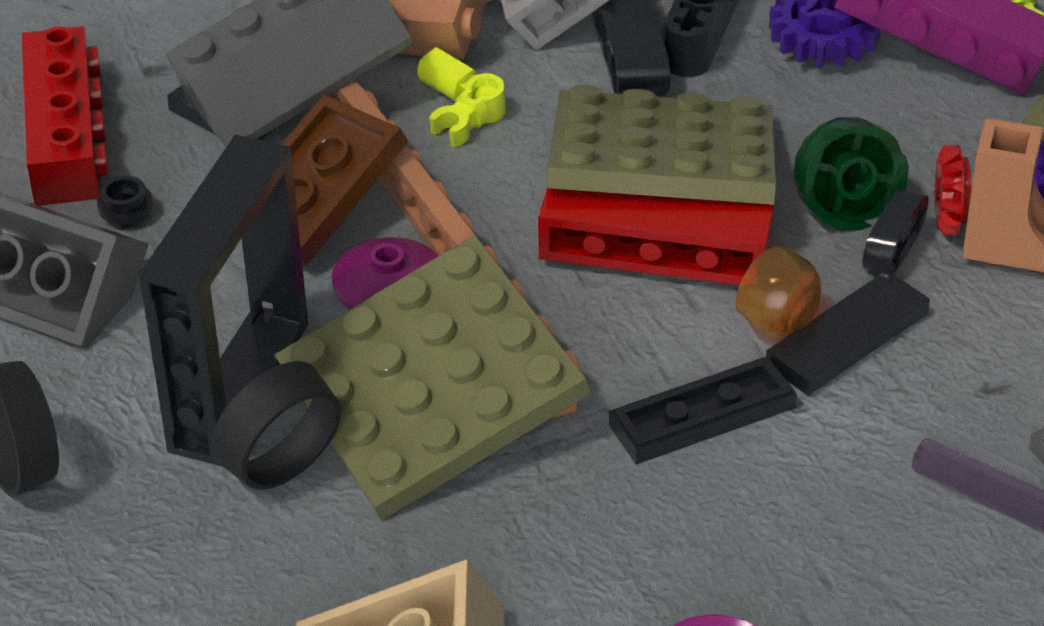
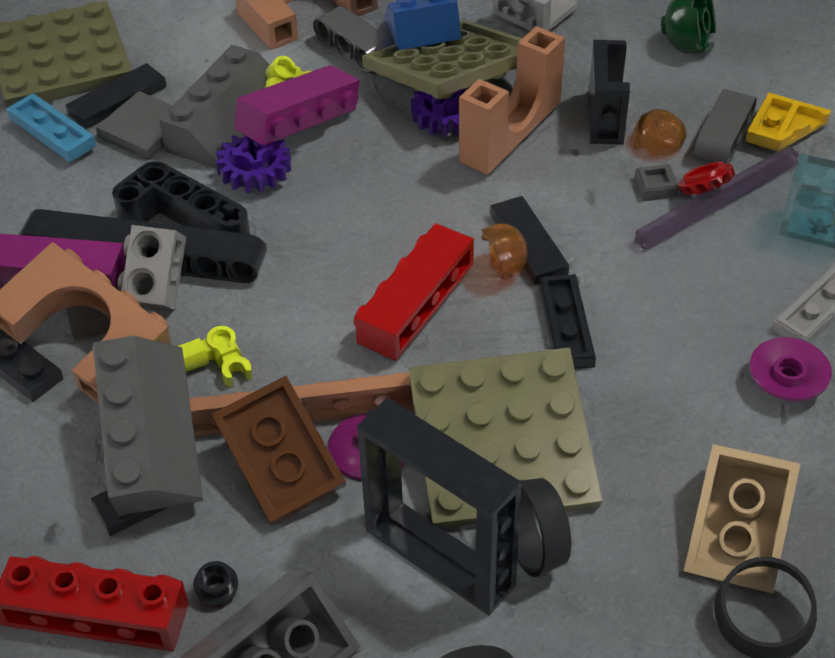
camera: 70 degrees left, 5 degrees up
(663, 146) = (345, 263): olive plate -> none
(849, 172) = (405, 190): dark green cylinder -> none
(895, 231) = (461, 191): black beam -> none
(952, 189) = (461, 152): red gear -> none

